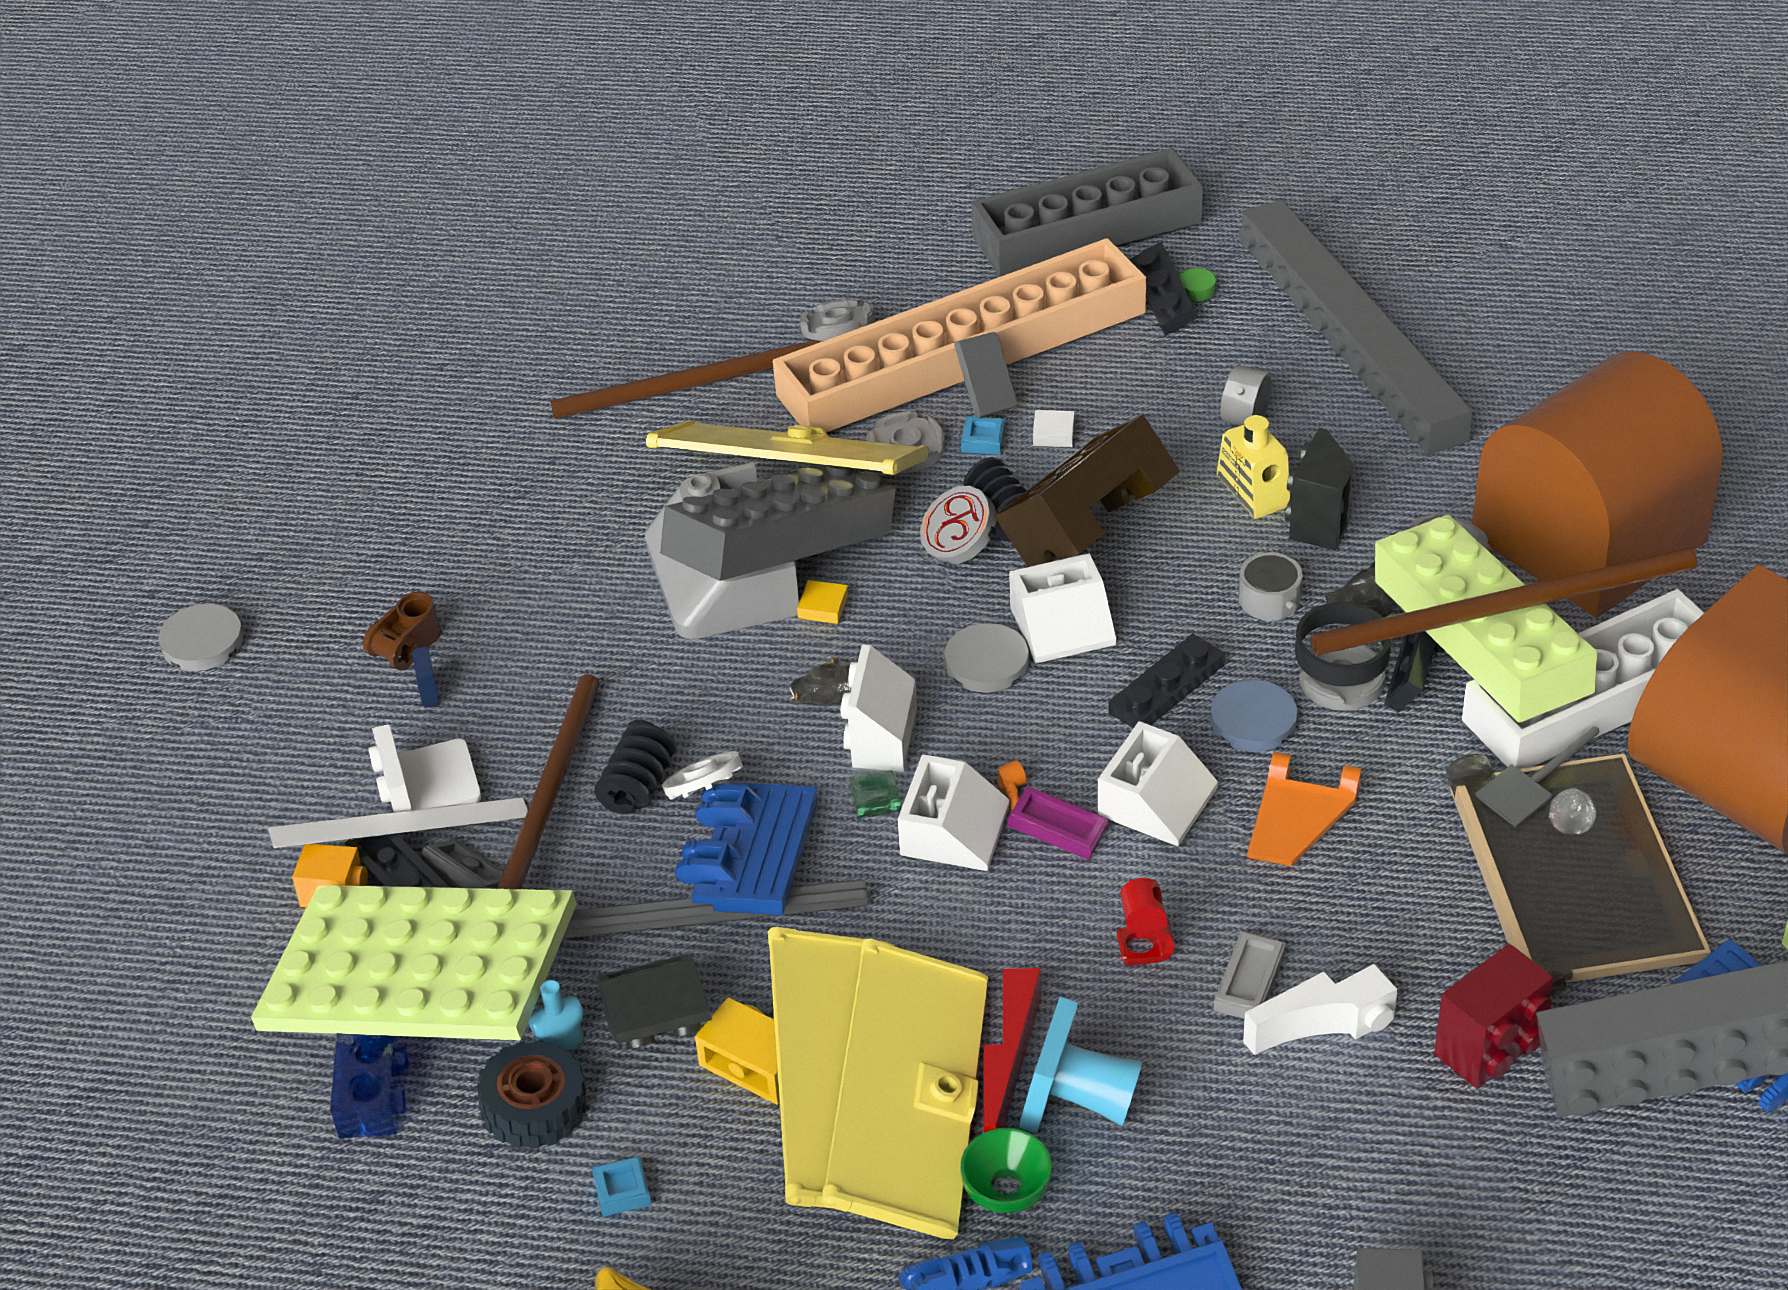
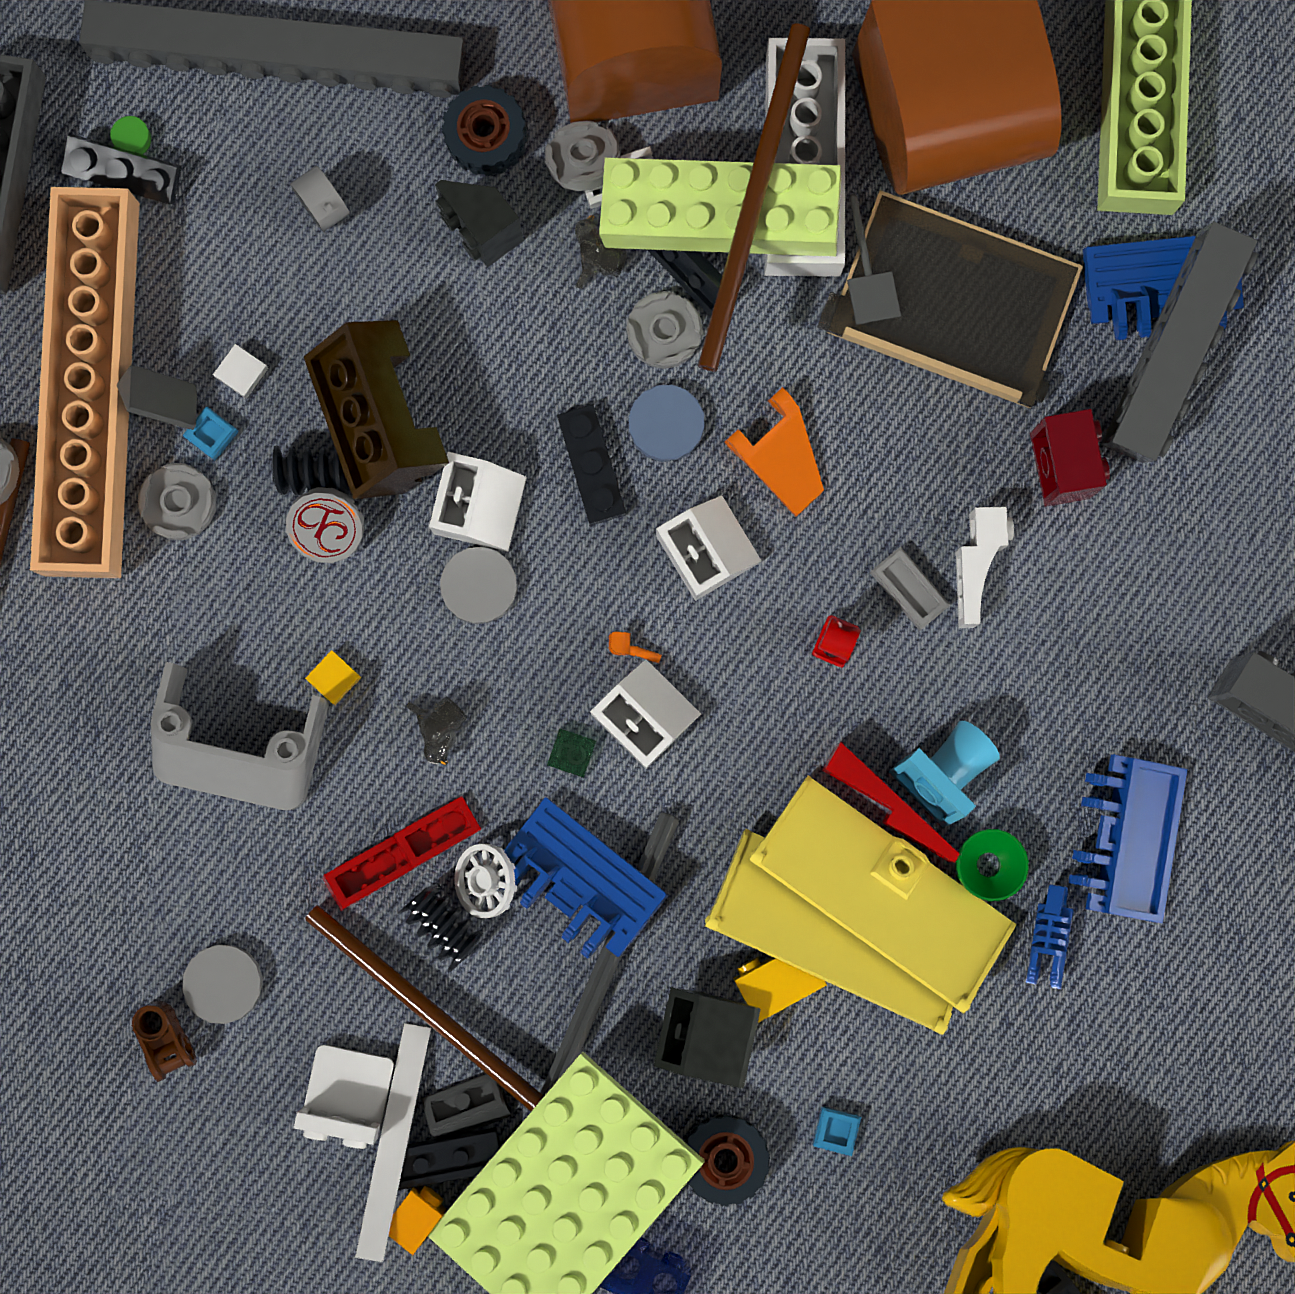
camera: 65 degrees left, 40 degrees up
(200, 636) = (51, 1209): light grey tile -> none
(425, 677) = (229, 1045): dark blue tile -> none
(481, 654) = (222, 984): none -> light grey tile
(558, 1019) = (670, 1109): medium azure piece -> none
(700, 722) = (401, 853): none -> red slope
(776, 520) = (262, 685): dark grey brick -> none
(797, 444) = (145, 614): light yellow door -> none
(878, 712) = (508, 708): white slope -> none
(1057, 822) = (688, 636): magenta tile -> none
(1255, 467) = (410, 249): light yellow torso -> none
(1270, 586) = (543, 322): piece -> none
(1338, 673) = (652, 275): black tyre -> none
(1408, 472) = (479, 108): none -> black wheel
(1572, 811) = (920, 272): clear plate -> none

